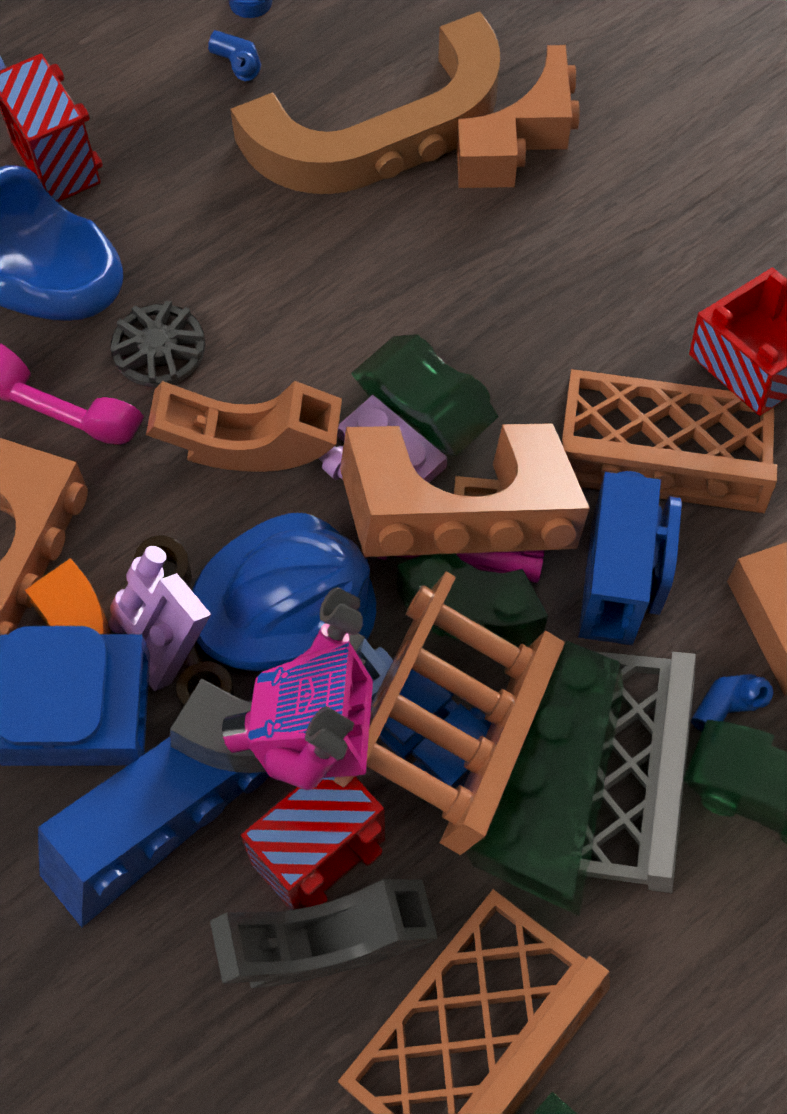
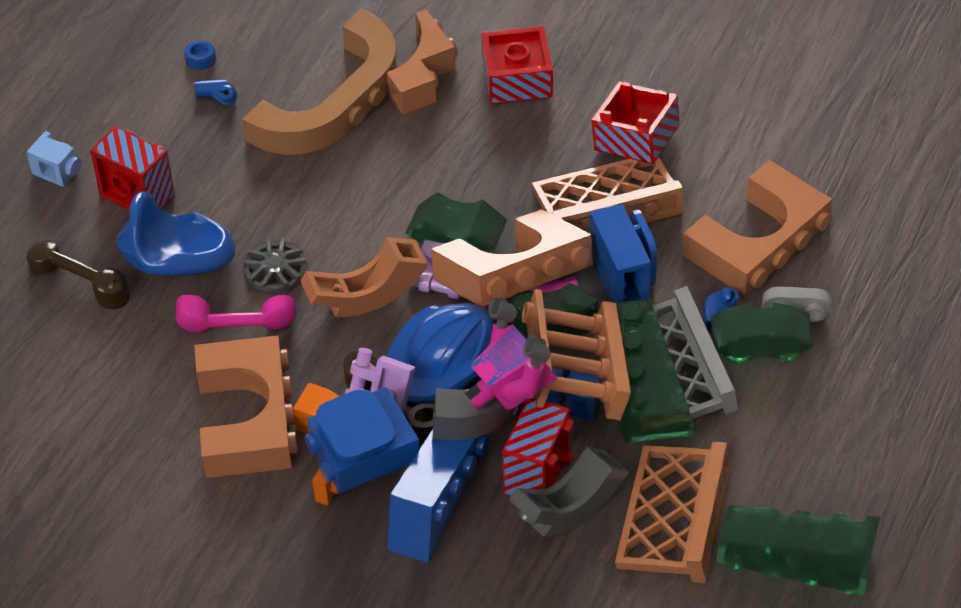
camera: 25 degrees left, 15 degrees down
(645, 178) = (517, 64): none -> red container

